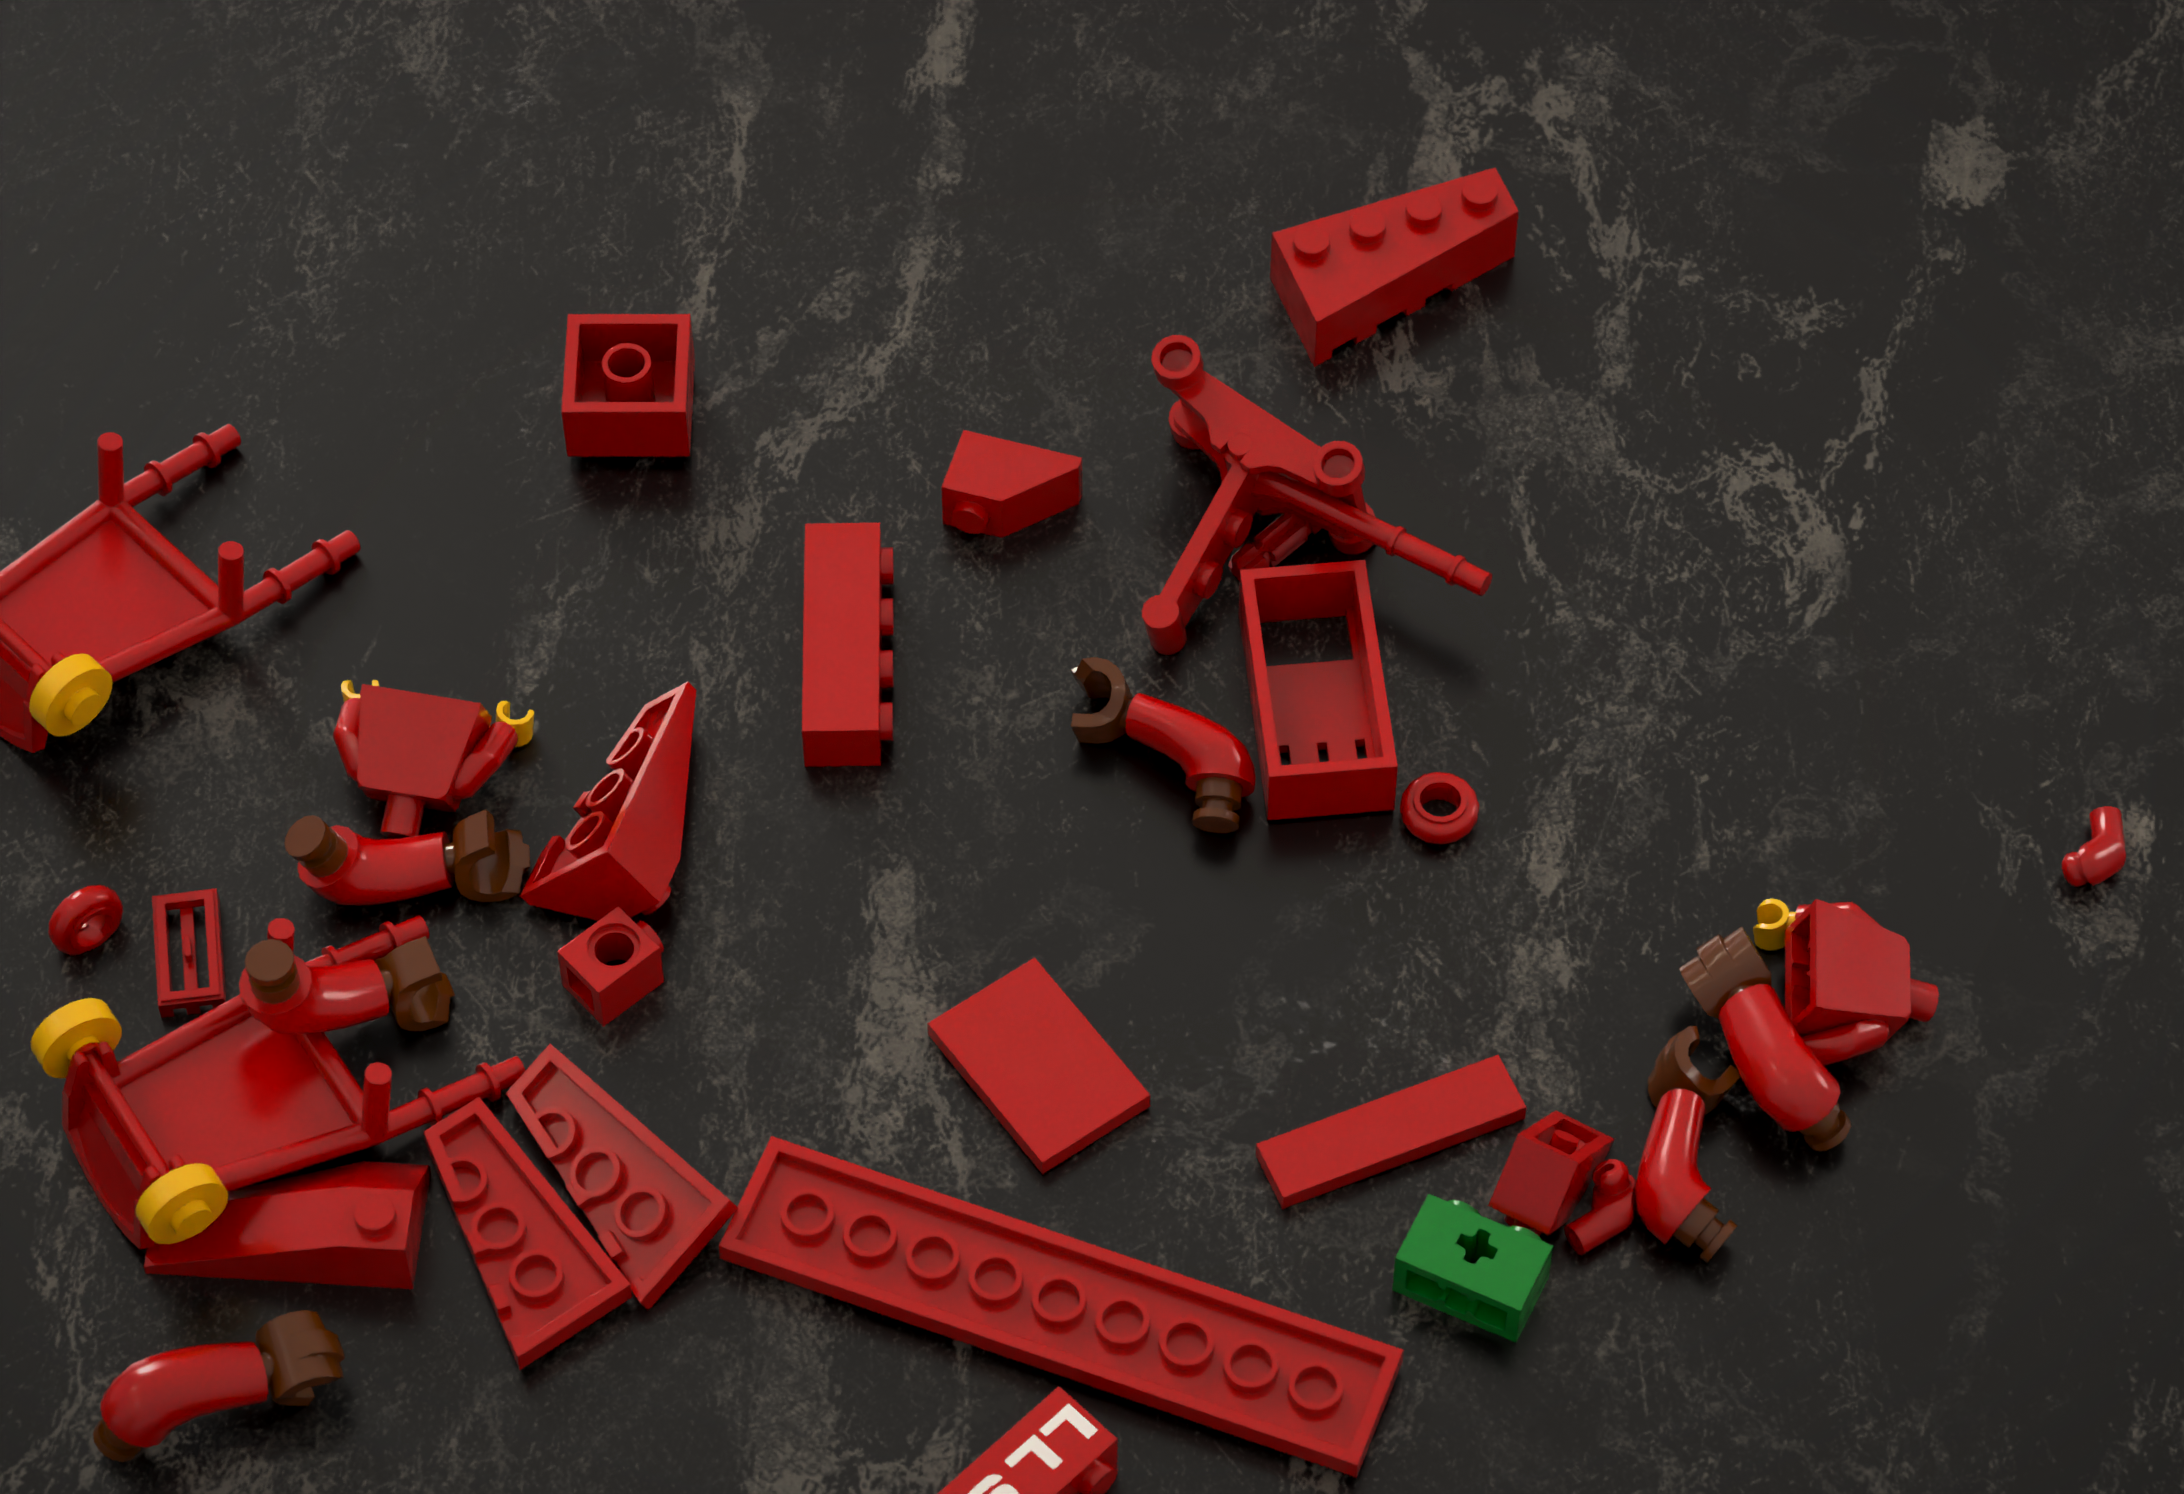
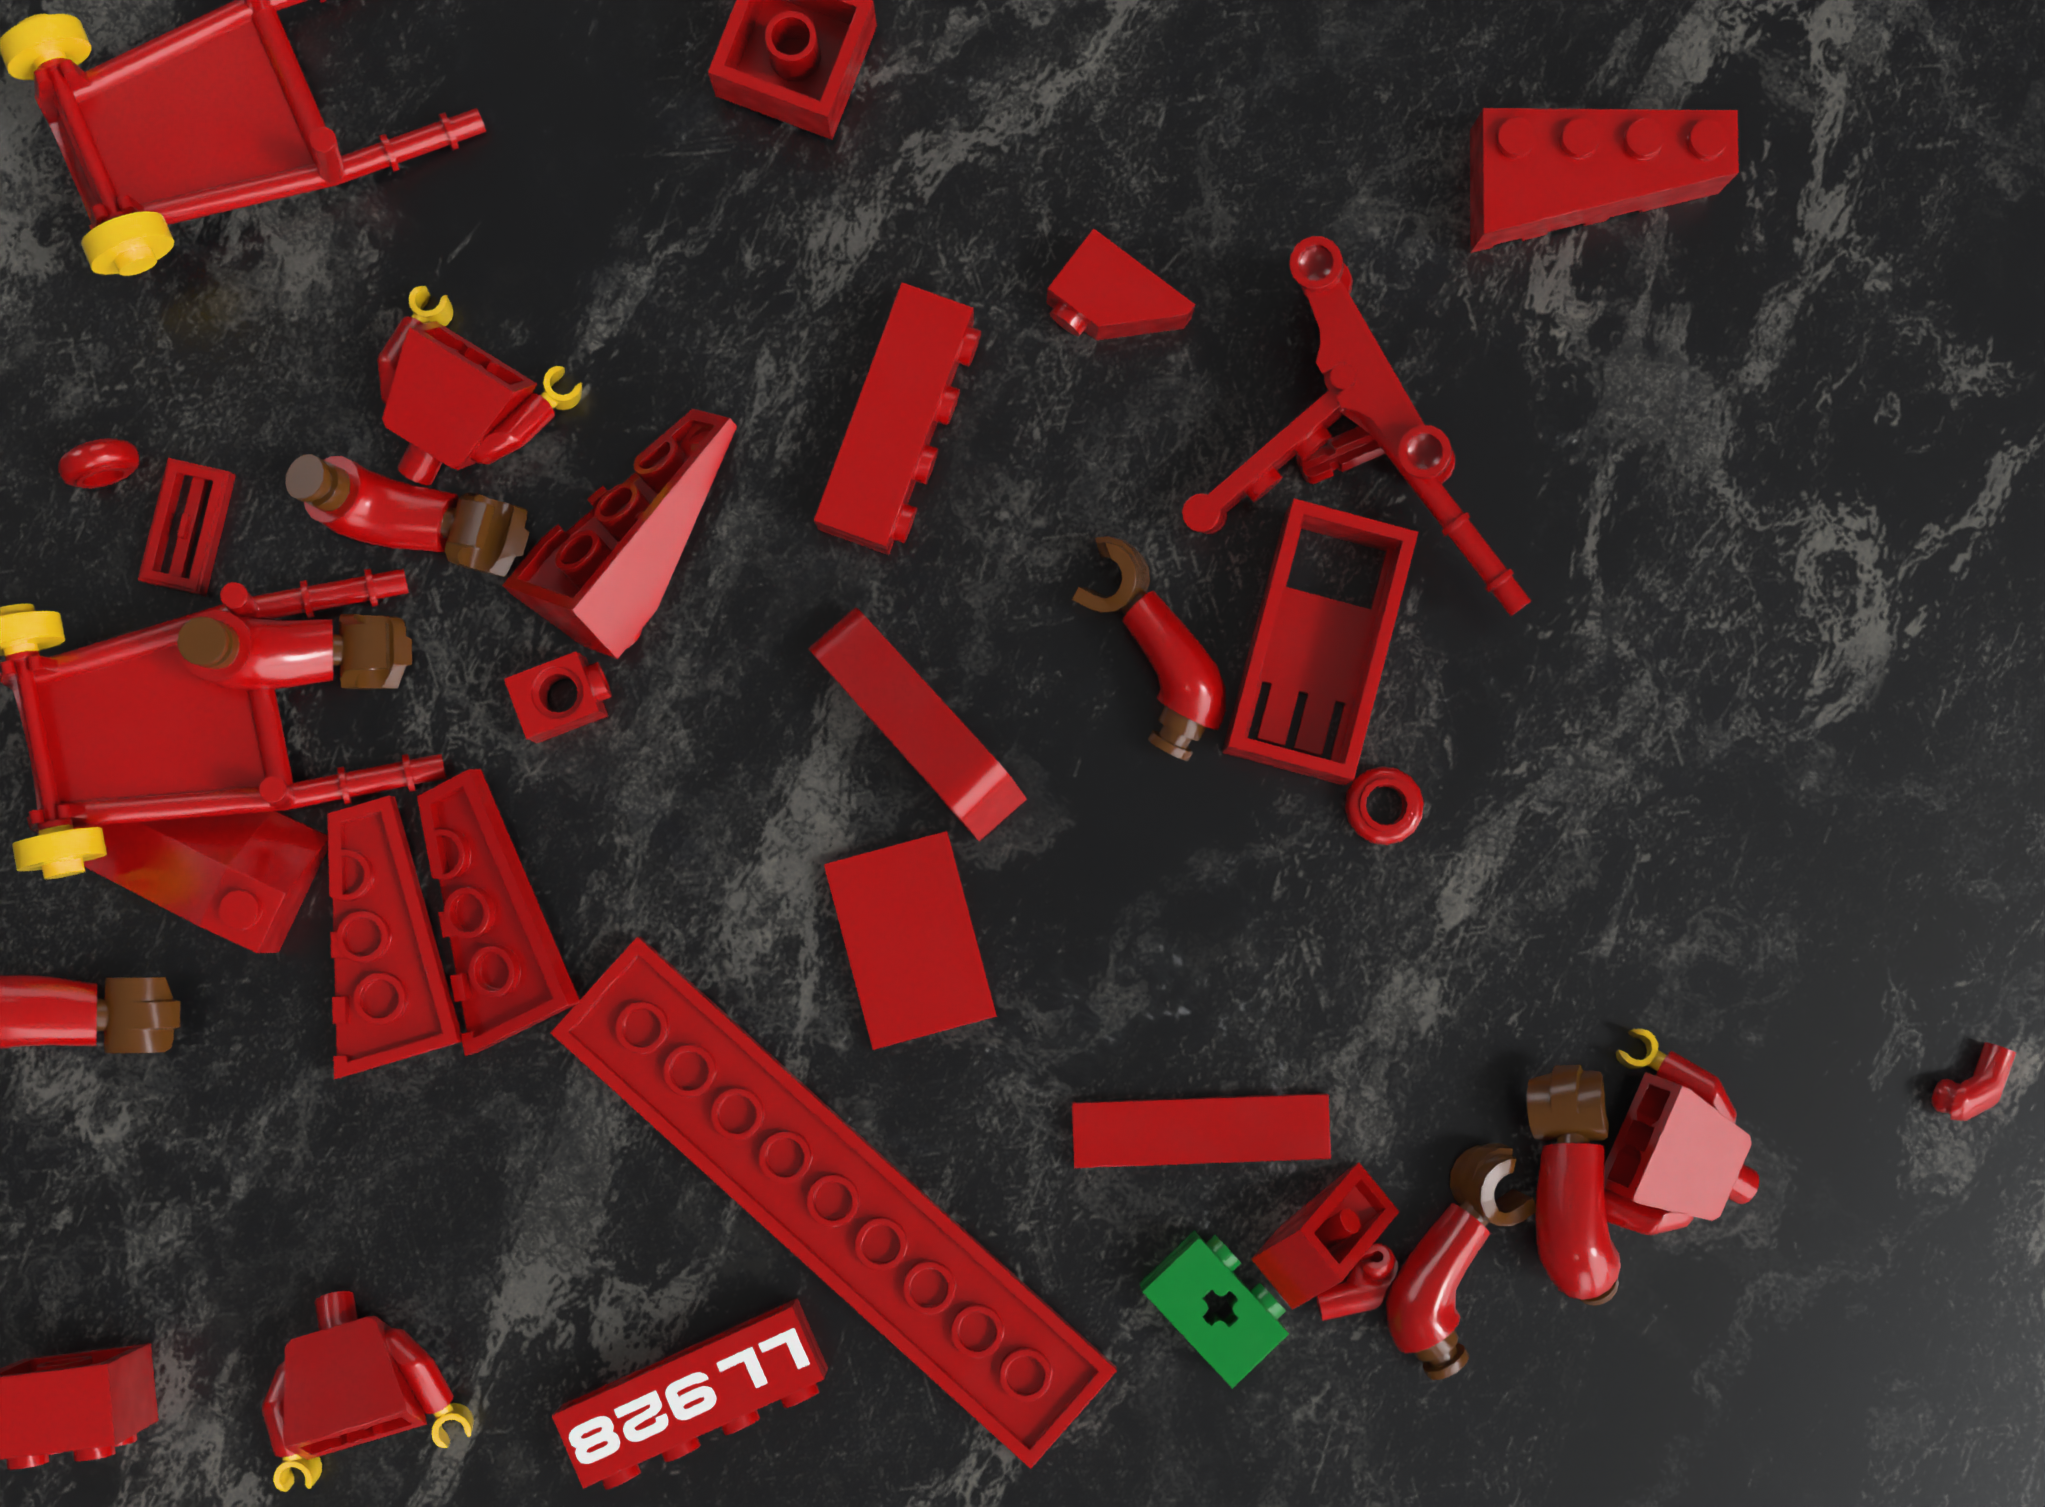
camera: 15 degrees right, 30 degrees up
(978, 865) = (918, 723): none -> red beam

